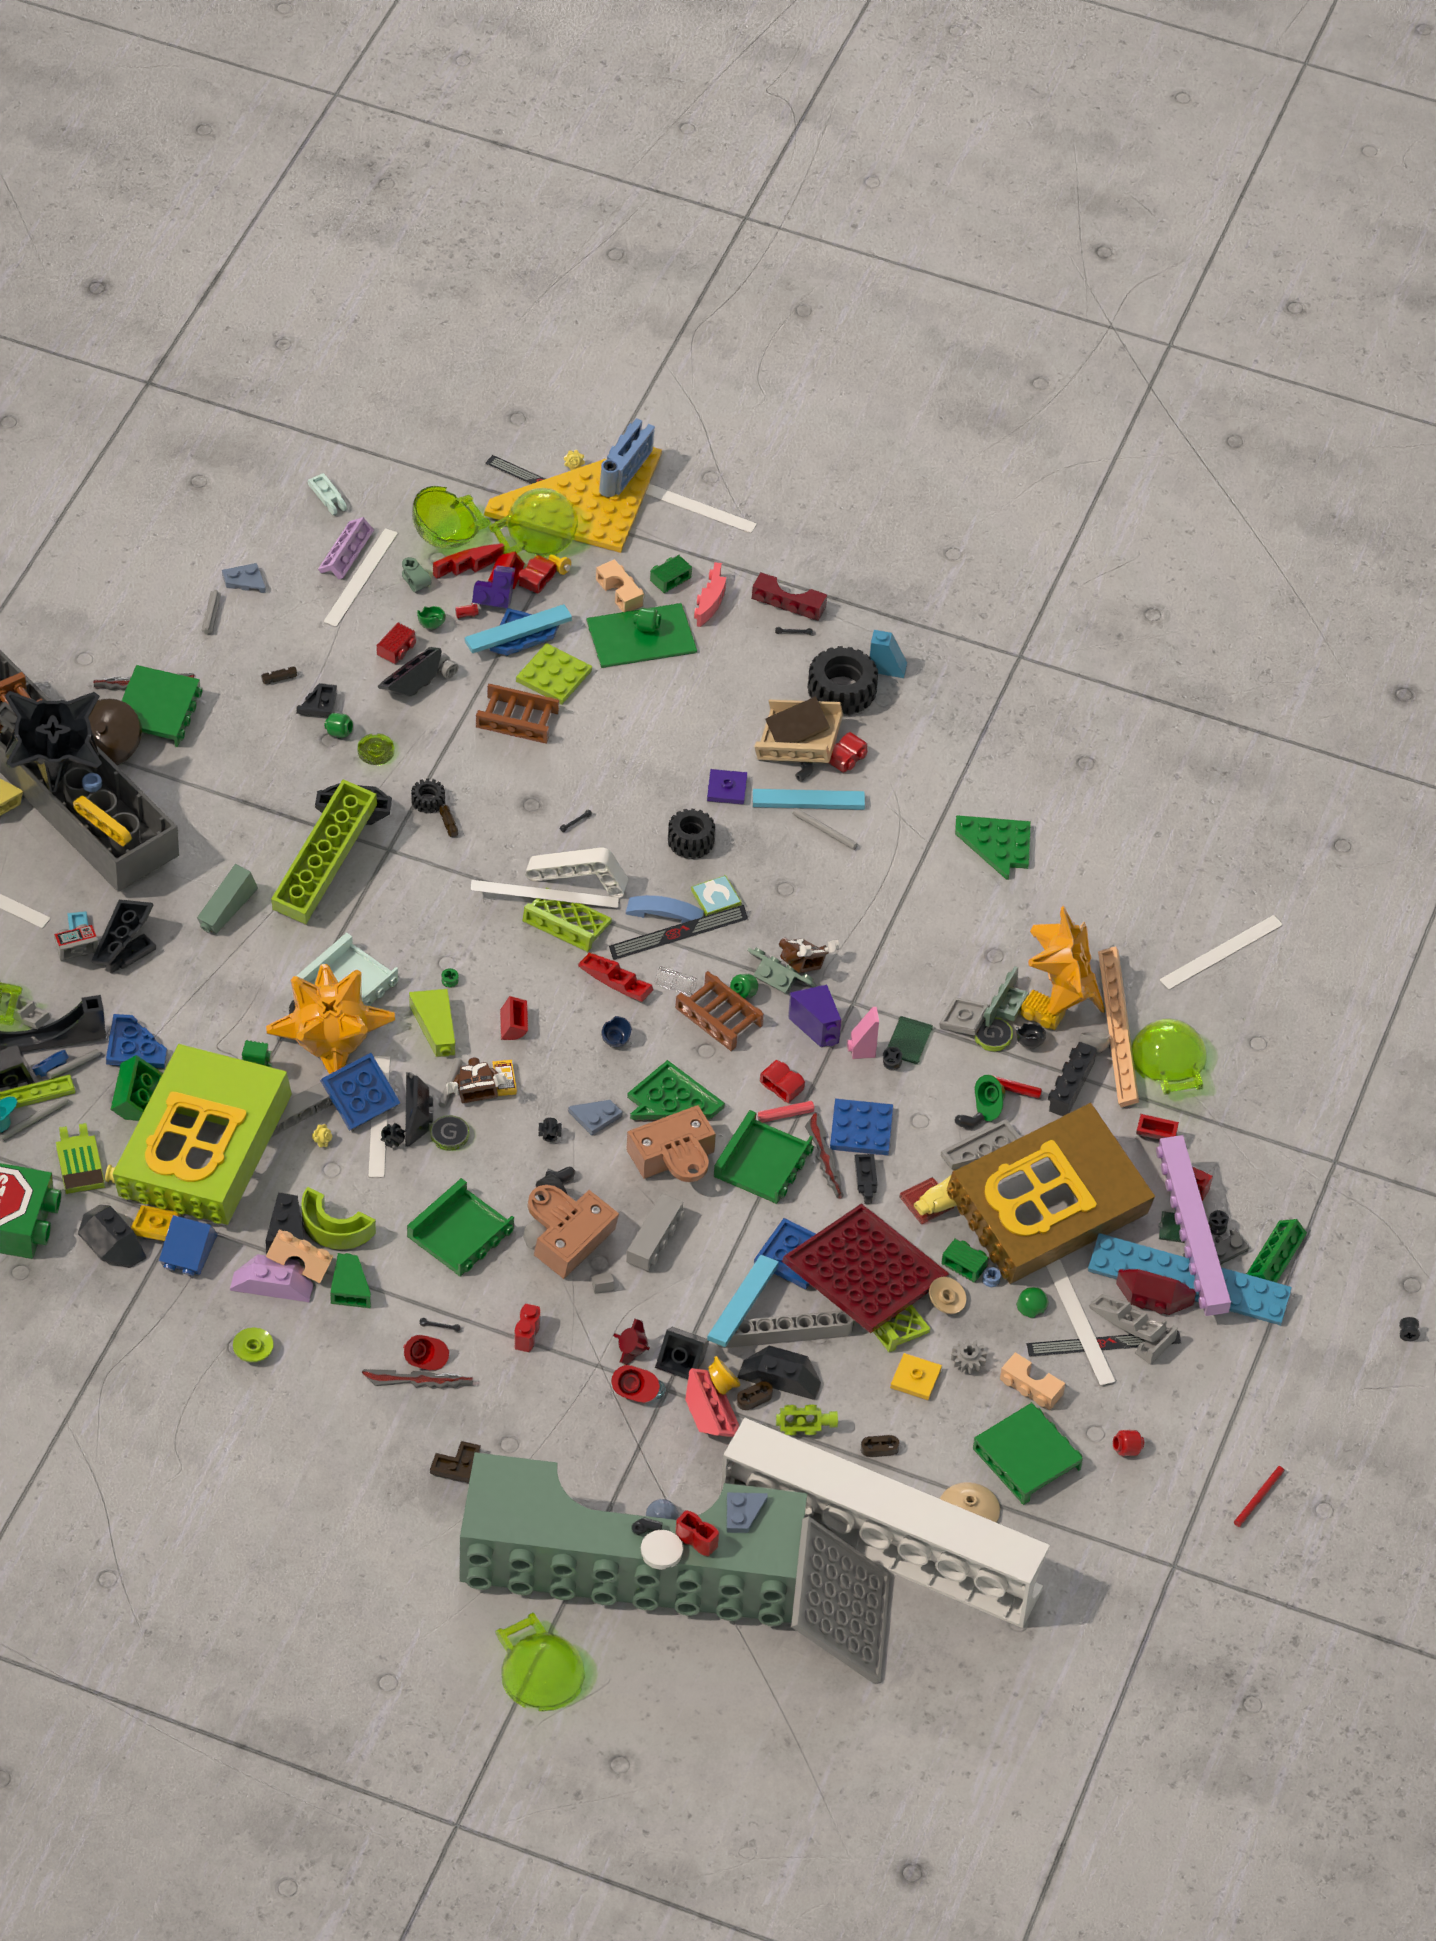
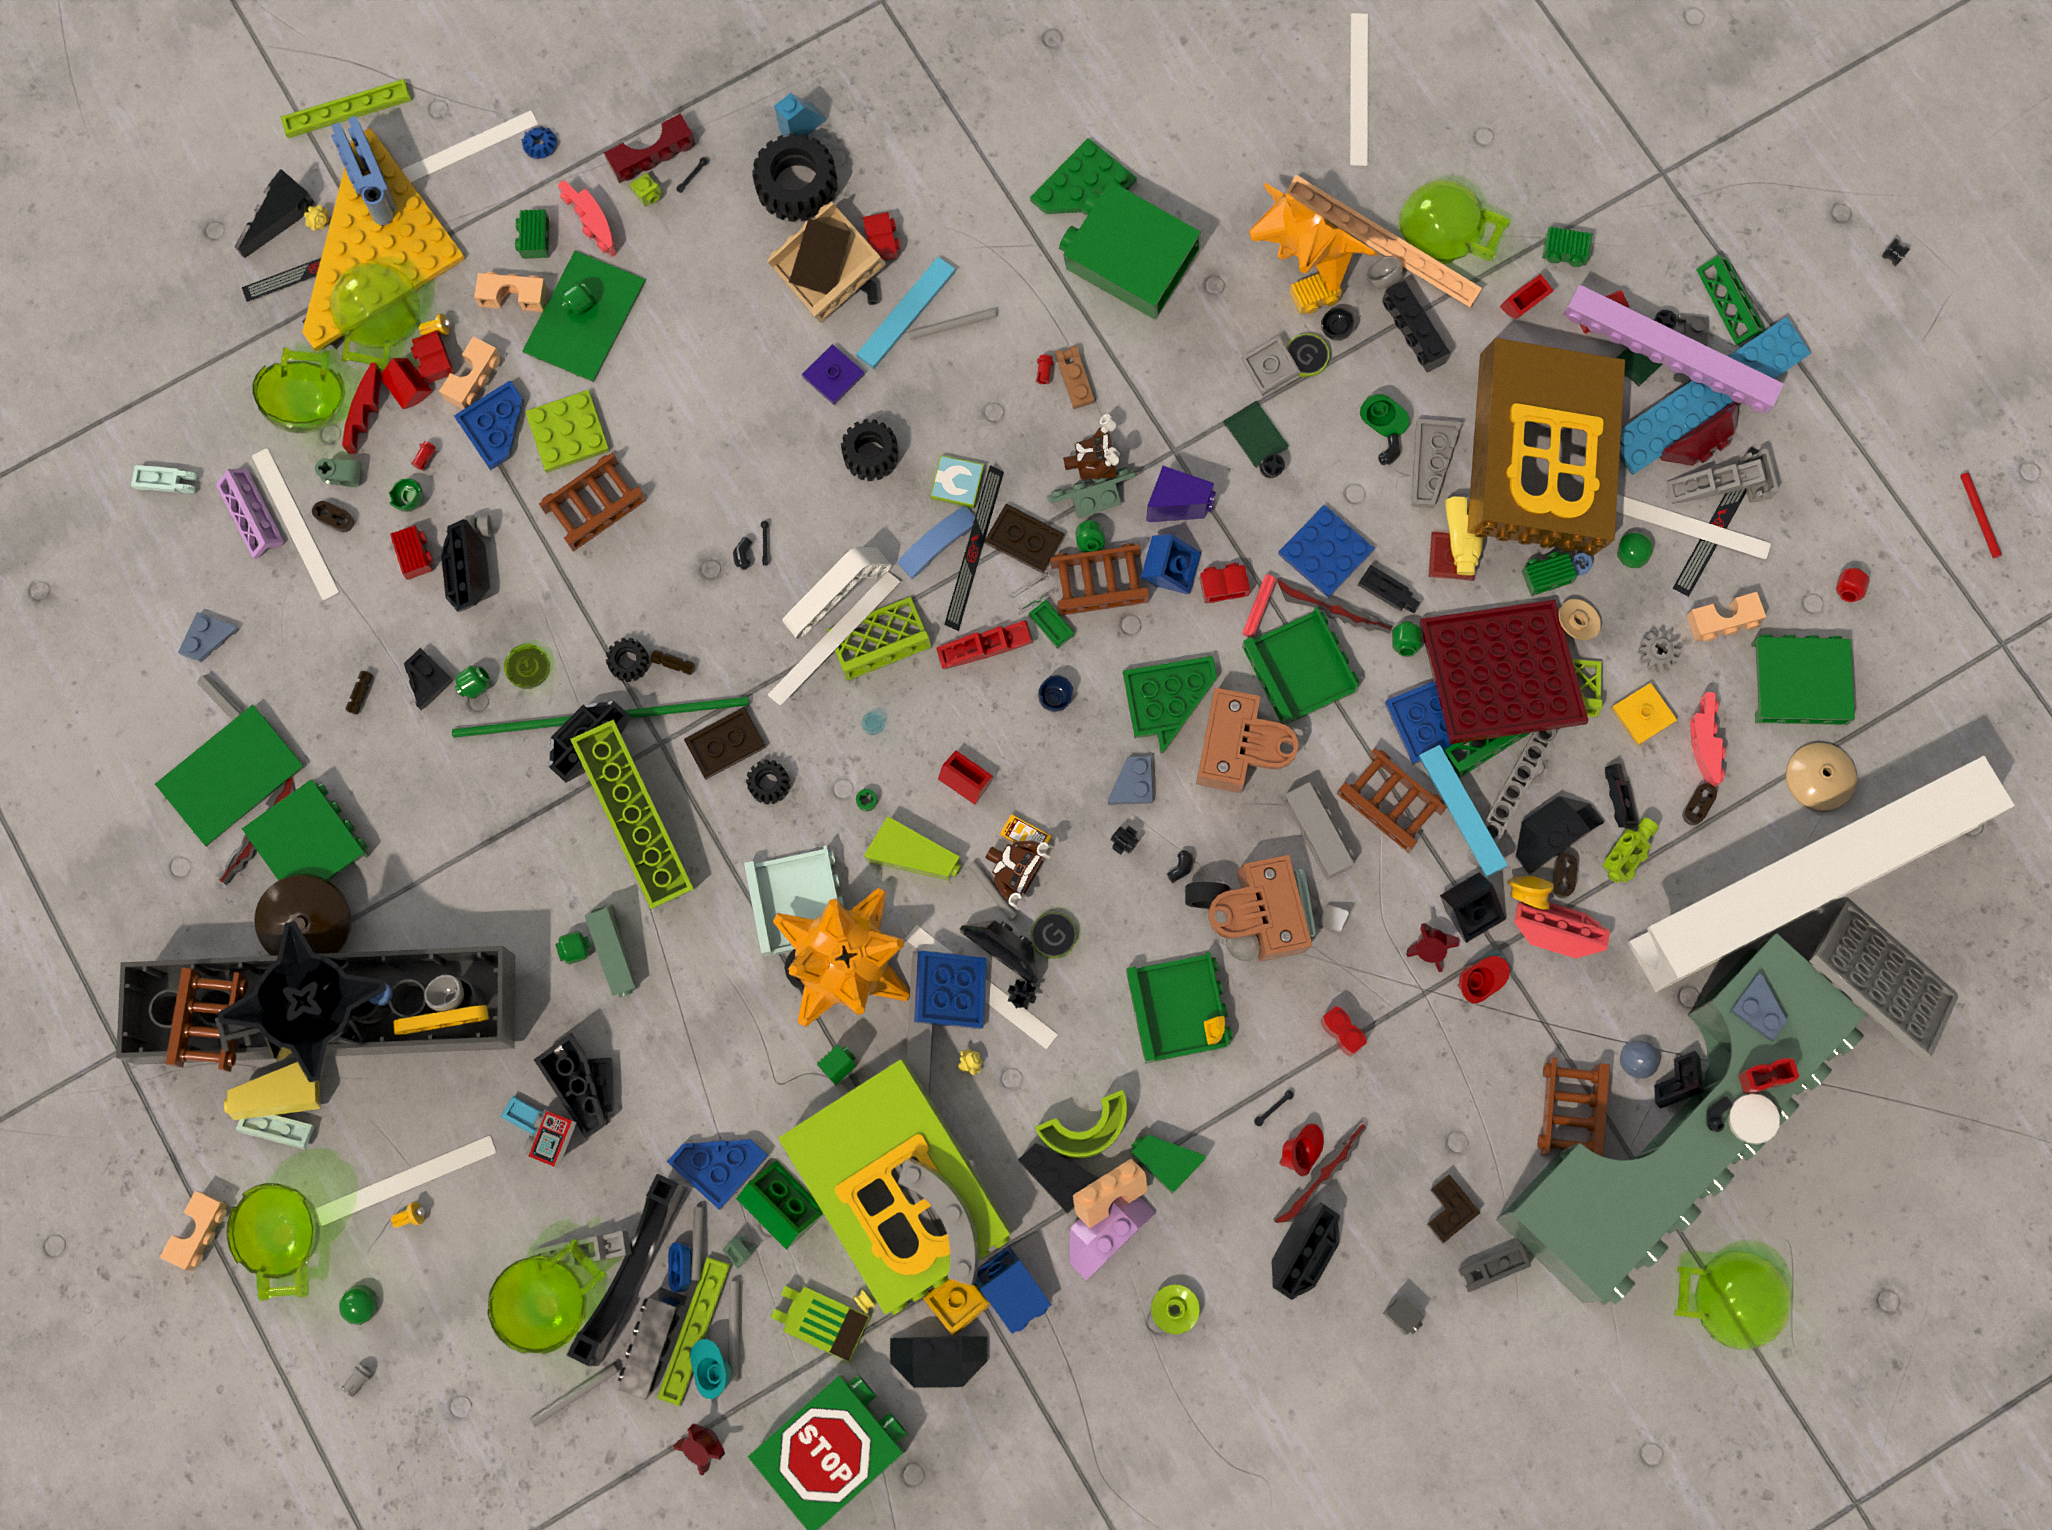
camera: 45 degrees left, 25 degrees up
(87, 1086) = (737, 1251): none -> sand green tile
(121, 811) = (444, 993): none -> light grey piece
(166, 644) = (229, 775): none -> green piece
(207, 1158) = (953, 1213): none -> light grey brick
(209, 880) = (573, 947): none -> green head
(355, 1394) = (1305, 1251): none -> black wedge
(360, 1476) = (1404, 1315): none -> dark grey brick
(387, 591) = (335, 512): none -> dark brown beam
(393, 820) = (634, 713): none -> green piece
(413, 925) = (764, 769): none -> black tyre
(419, 881) = (724, 743): none -> dark brown tile
(438, 1511) = (1495, 1267): none -> dark grey plate
(462, 1252) = (1214, 1029): none -> yellow tile
(497, 592) = (427, 413): dark purple brick -> none
(505, 949) = (872, 723): none -> clear light blue plate
(518, 628) = (490, 426): medium azure tile -> none
(532, 603) = (465, 390): none -> light nougat arch
(554, 436) = (281, 208): none -> black wedge
(556, 810) = (739, 553): none -> black arm
(598, 1257) = (1301, 881): none -> light aqua axle
(608, 1502) = (1596, 1100): none -> dark orange fence
(664, 1006) = (1051, 624): none -> green tile
(665, 431) = (345, 108): none -> lime tile
(700, 1253) = (1388, 823): none -> dark orange fence
(711, 953) = (1024, 538): none -> dark brown tile
(731, 542) = (539, 151): none -> blue gear
(759, 613) = (646, 189): none -> lime bracket
(768, 1043) = (1171, 563): none -> blue slope
(801, 1297) = (1480, 755): none -> green fence
(839, 1204) = (1406, 639): none -> green head
(840, 895) = (1044, 369): none -> red pin
(841, 1394) = (1621, 796): none -> black hinge
(851, 916) = (1074, 377): none -> medium nougat plate
(864, 1036) = (1238, 472): bright pink slope -> none
(925, 1422) = (1706, 748): none -> coral slope
(968, 885) = (1130, 248): none -> green brick
(1008, 1000) = (1286, 314): sand green bracket -> none
(1020, 1088) = (1380, 382): red axle -> none
(1219, 1133) = (1567, 246): none -> green brick

